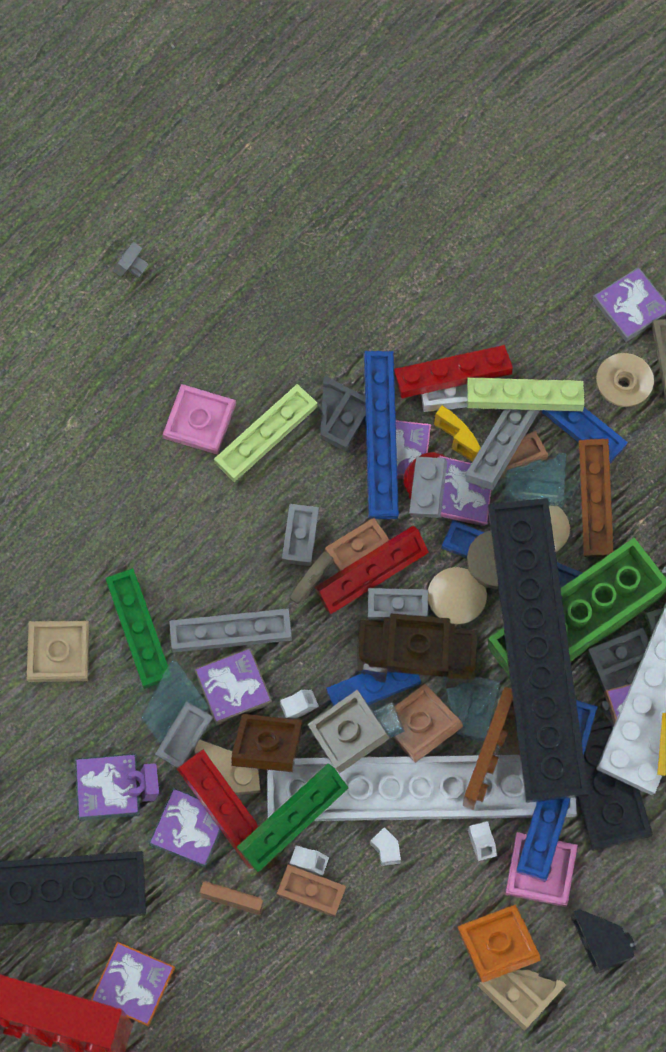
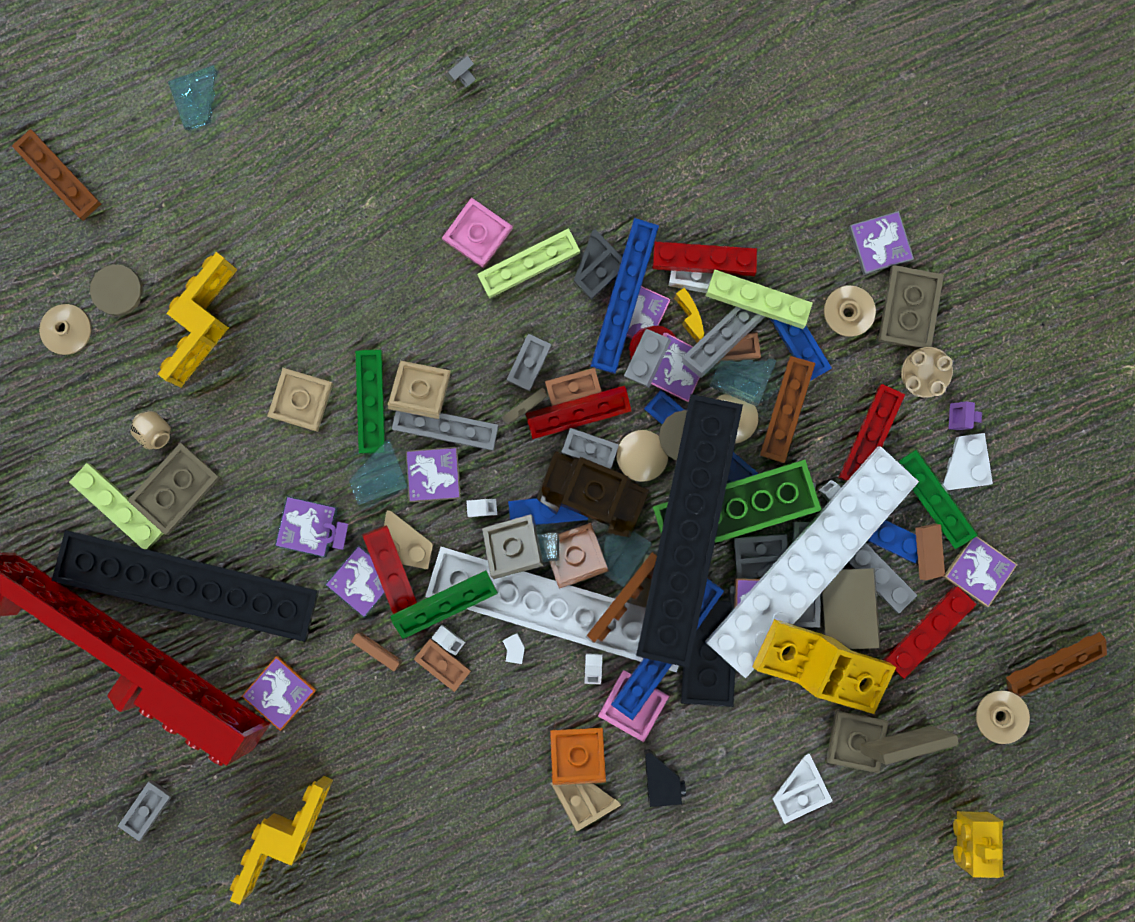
camera: 20 degrees right, 15 degrees up
(183, 735) = (378, 506): light grey tile -> none
(189, 598) = (419, 389): none -> tan tile
(266, 743) = (443, 534): reddish brown plate -> none

